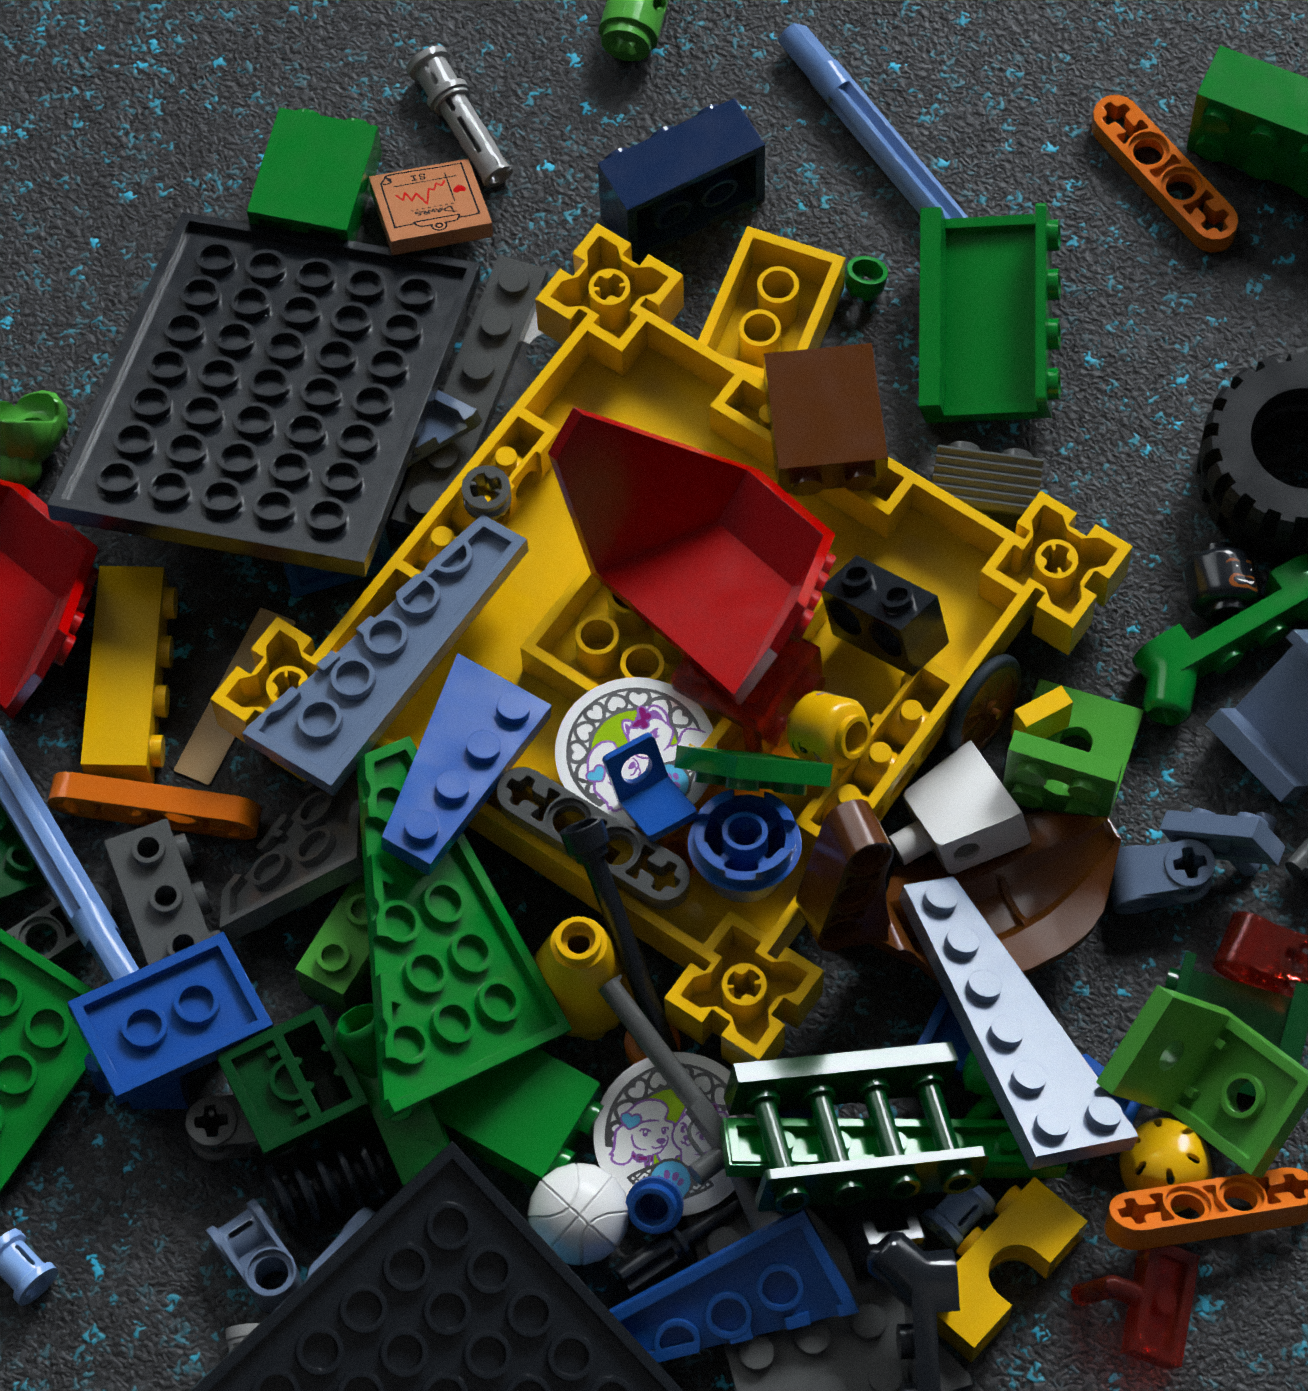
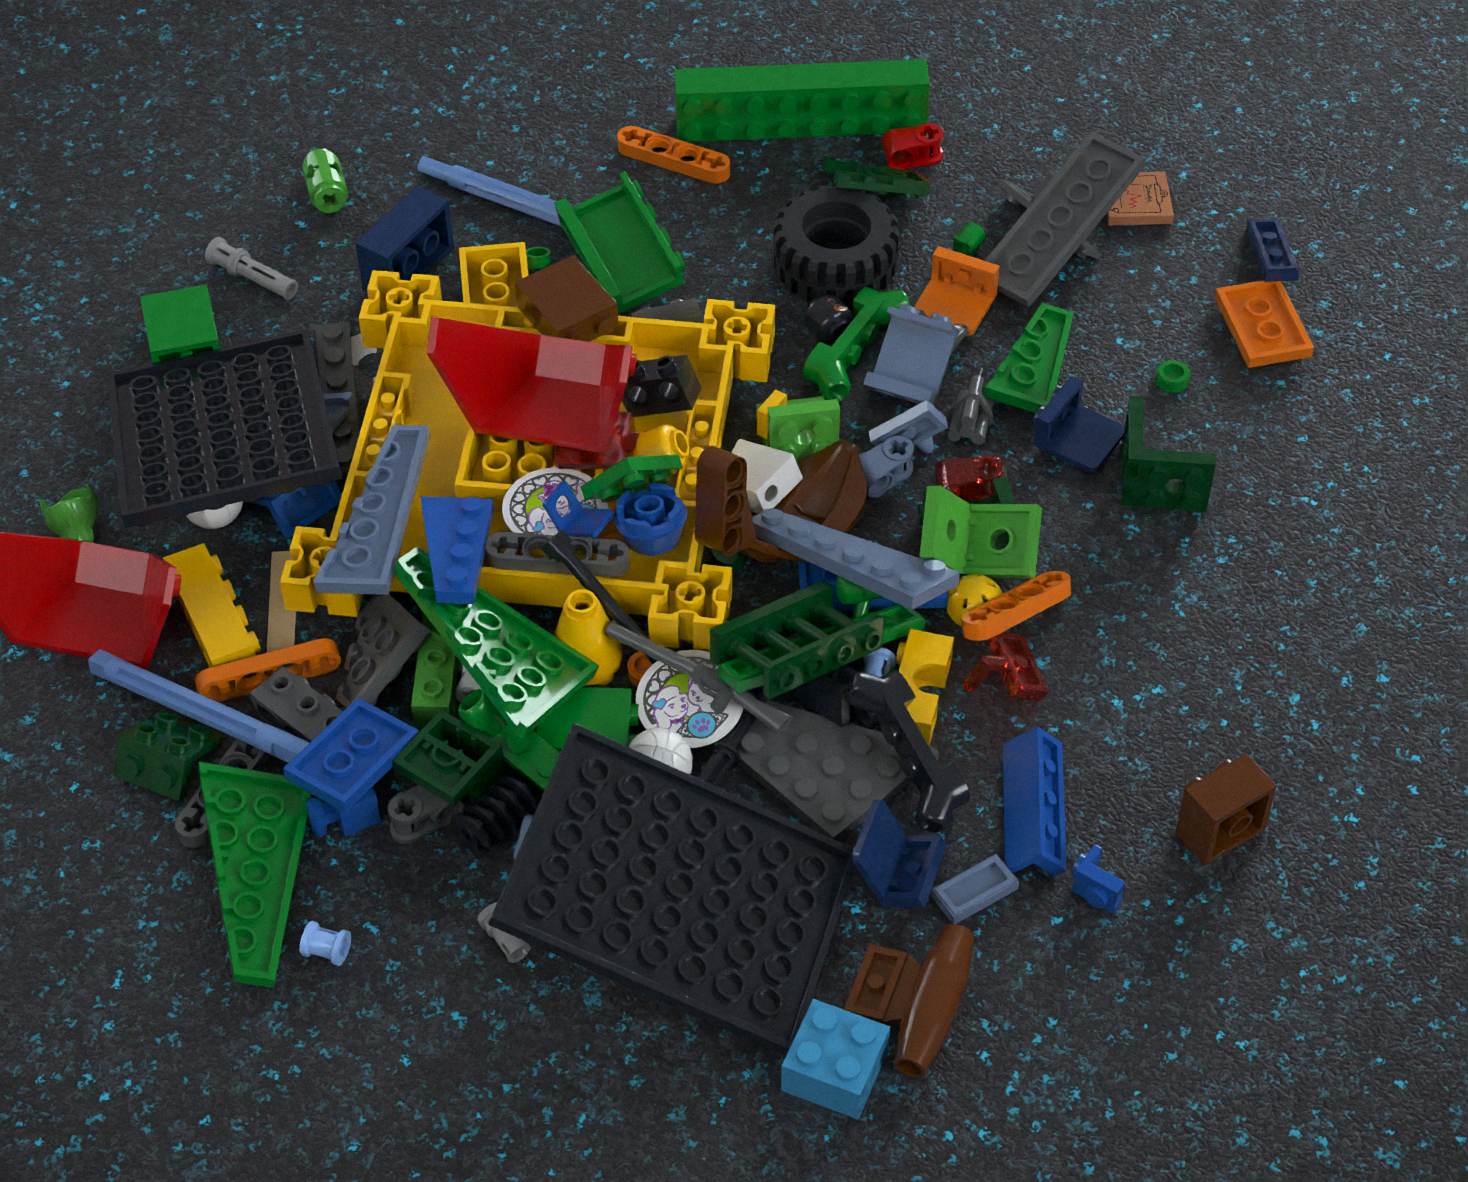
camera: 30 degrees left, 15 degrees down
(253, 1251) = (470, 871): sand blue piece -> none
(430, 206) = (260, 315): nougat tile -> none
(495, 481) = (387, 408): dark grey bush -> none
(654, 1204) = (702, 733): blue plate -> none
(742, 1291) = (785, 750): blue wing -> none
(985, 703) = (736, 417): wheel -> none

